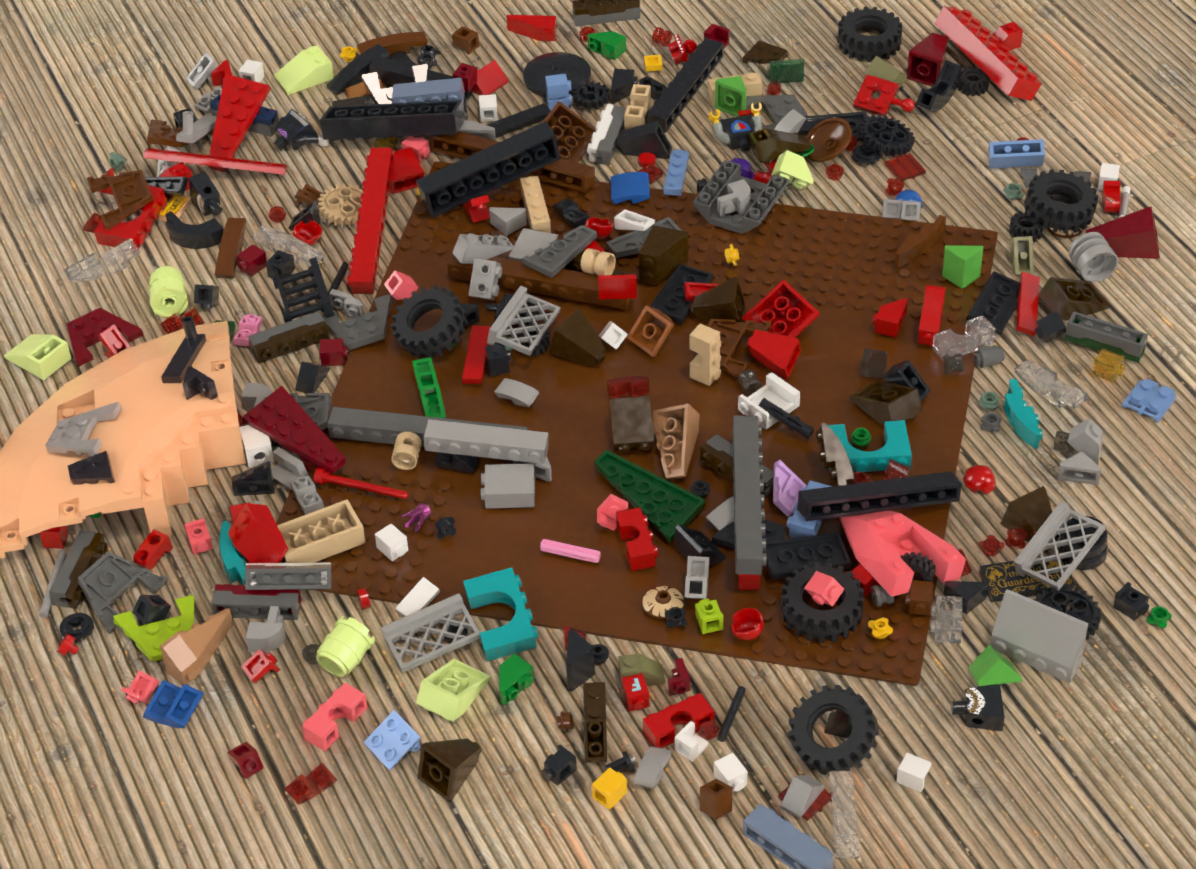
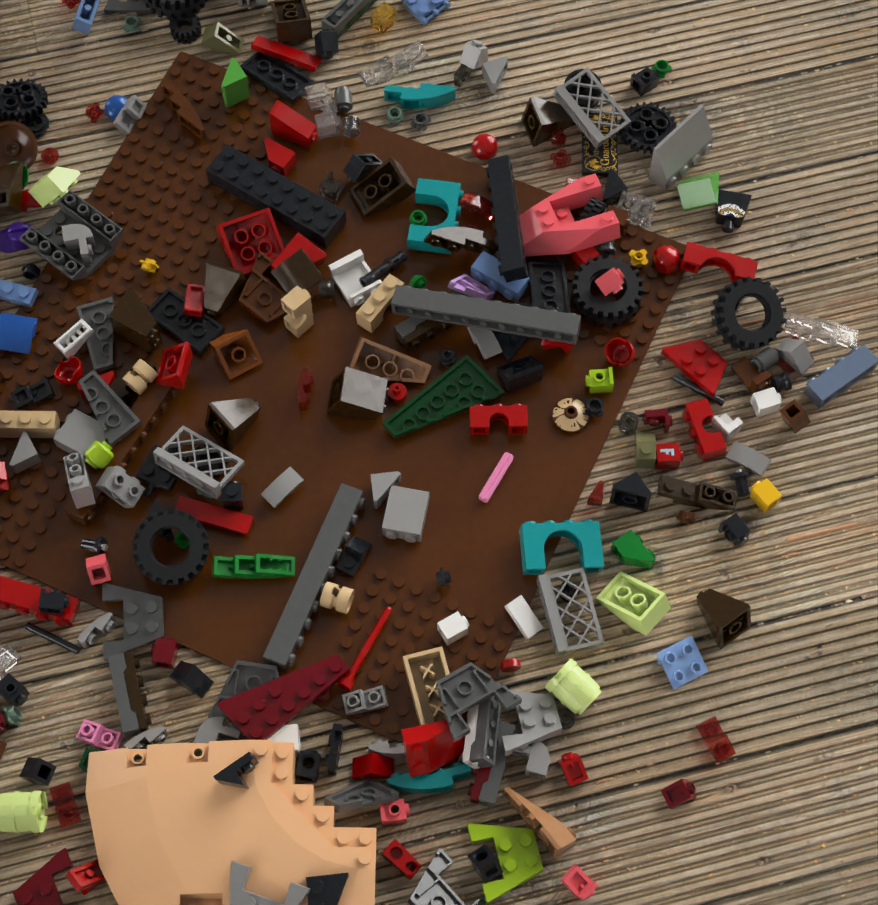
camera: 80 degrees left, 20 degrees up
(173, 704) = (600, 855): blue slope -> none
(185, 353) = (172, 789): black piece -> none
(205, 501) = (361, 795): none -> dark grey wing
(234, 465) = (311, 774): none -> black brick
(247, 356) = (152, 736): none -> light grey slope
(262, 272) = (13, 715): none -> sand green plate
(288, 468) = (322, 717): light grey panel -> none
(304, 624) = (536, 719): none -> light grey wing
(313, 543) = (465, 690): none -> dark grey wing
(320, 293) = (58, 653): black fence -> none
(344, 703) = (657, 722): coral arch -> none
(360, 259) = (53, 602): none -> black brick
(420, 513) = (420, 595): flat silver piece -> none
(426, 281) = (98, 546): none -> black piece
(486, 441) = (362, 519): light grey brick -> none
(509, 254) = (99, 454): none -> lime head
(601, 654) = (614, 472): black plate -> none
(607, 511) = (462, 433): coral bracket -> none
(613, 335) = (228, 388): white panel -> none
(647, 458) = (397, 392): none -> red tile
(664, 657) = (625, 426): none -> clear smoke wheel
(697, 577) = (566, 383): light grey brick -> none
(708, 730) = (717, 408): clear red plate -> none
(724, 420) = (371, 312): none -> tan arch
(750, 349) = (296, 271): none -> dark brown slope
(760, 758) = (750, 376): none -> reddish brown bracket
(760, 785) = (781, 382): none -> black wheel
(762, 176) = (36, 217): red slope -> none
(762, 706) = (698, 363): none -> red wing
(779, 449) = (418, 282): none -> green plate
(786, 765) = (765, 359): none -> dark grey brick
(843, 325) = (287, 200): none -> black brick
(887, 653) = (666, 259): none -> red hair
(899, 725) = (697, 257): none -> red arch
(905, 167) = (63, 99): clear red piece -> none
(913, 772) = (786, 272): white panel -> none

